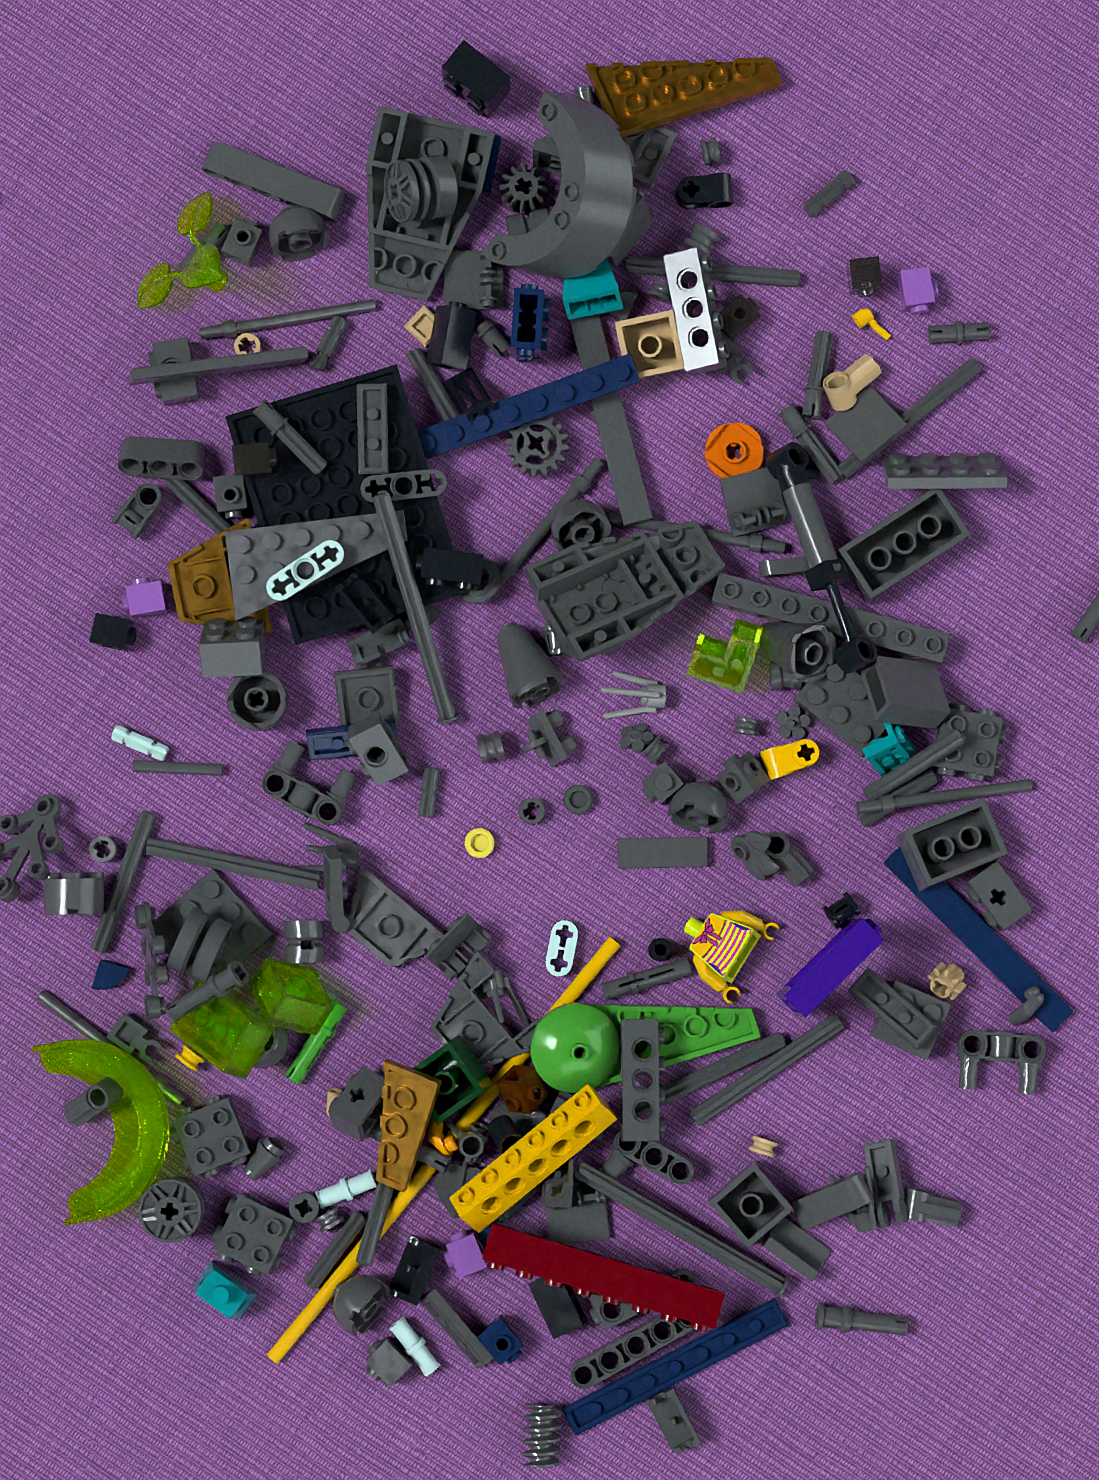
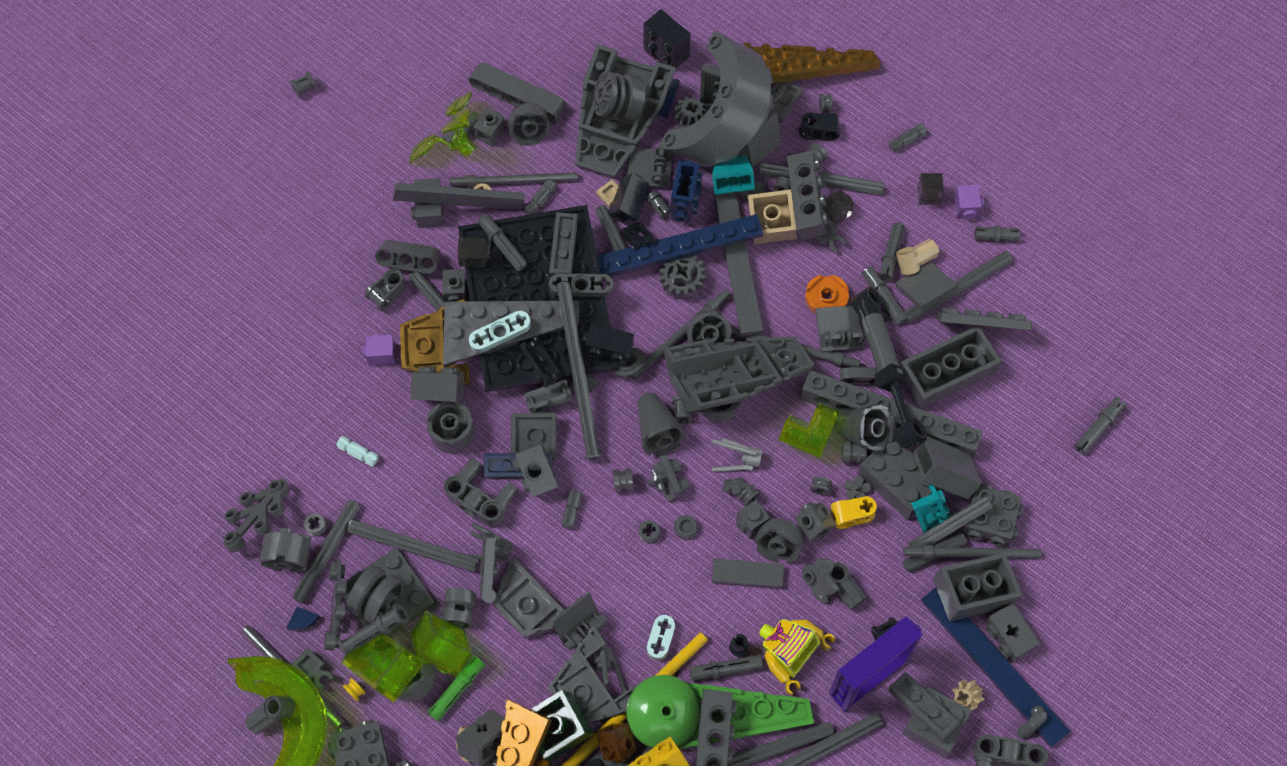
camera: 10 degrees right, 20 degrees down
(113, 632) = (351, 370): black brick -> none
(177, 767) = (383, 472): dark grey bar -> none
(479, 843) = (605, 551): light yellow tile -> none
(865, 317) = (929, 217): yellow hand -> none

